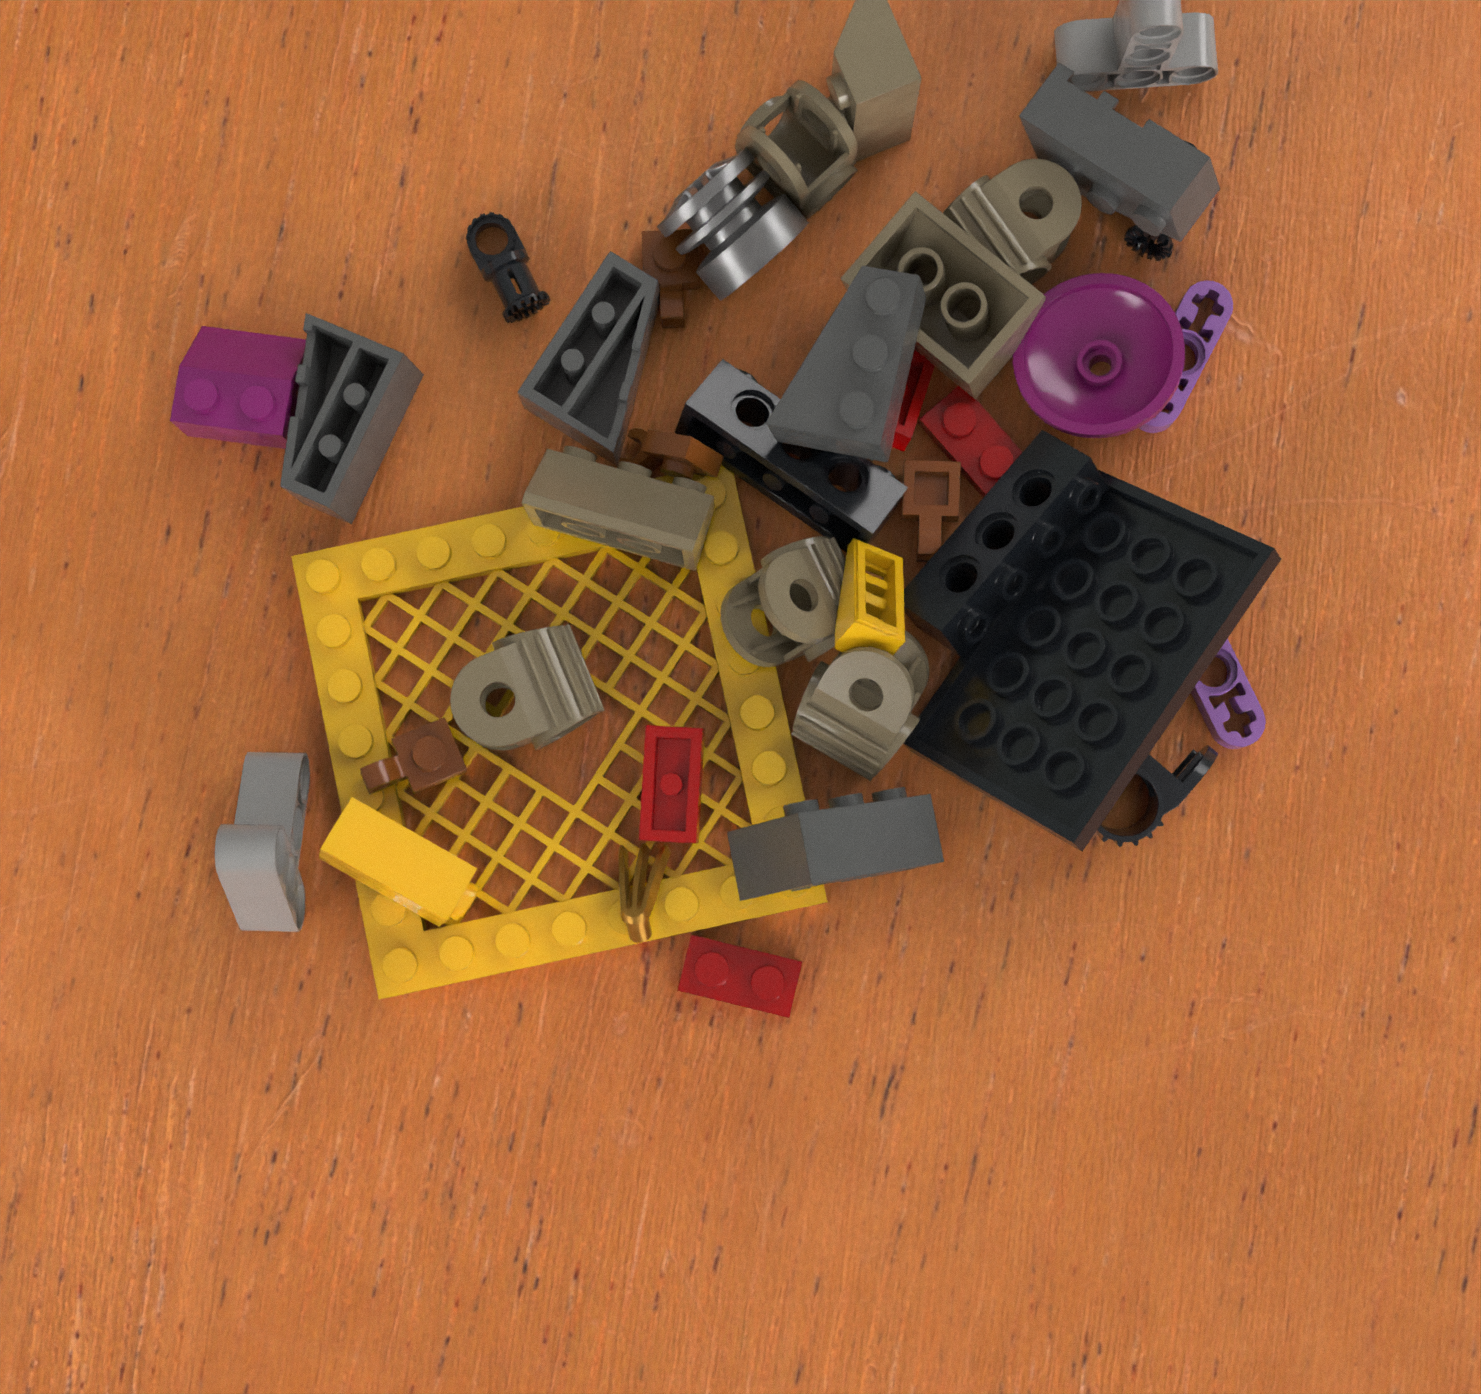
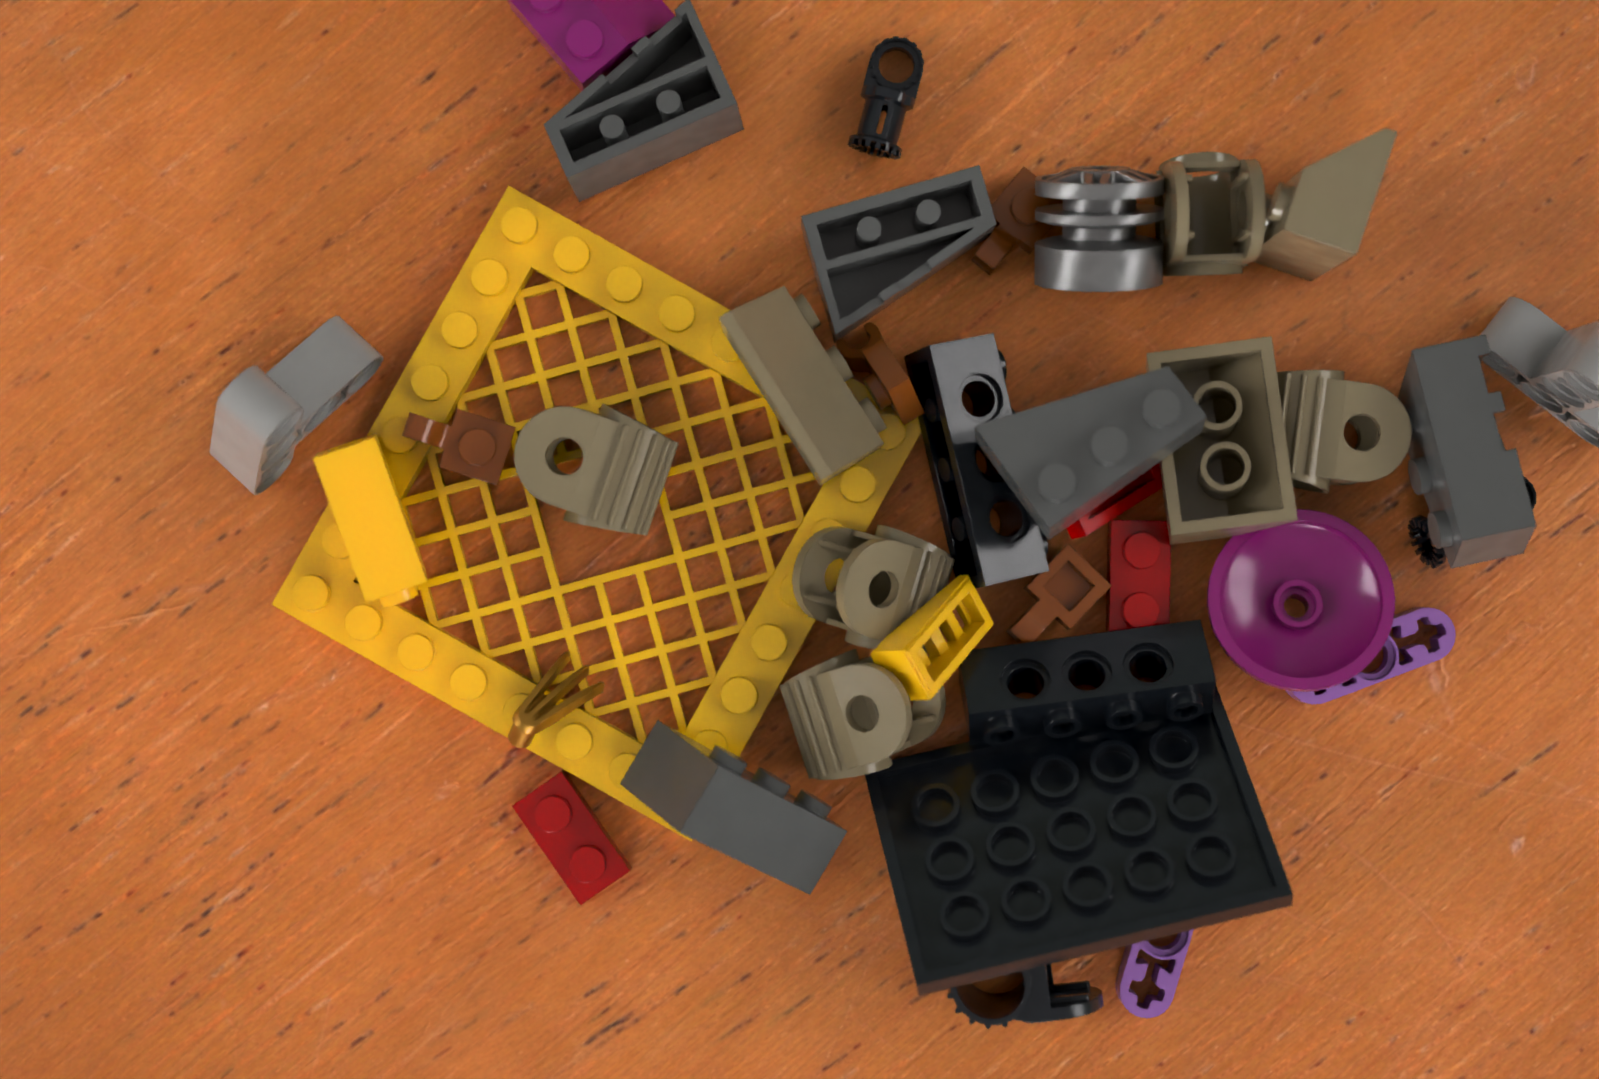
camera: 40 degrees right, 5 degrees up
(671, 784) = (649, 641): red plate -> none

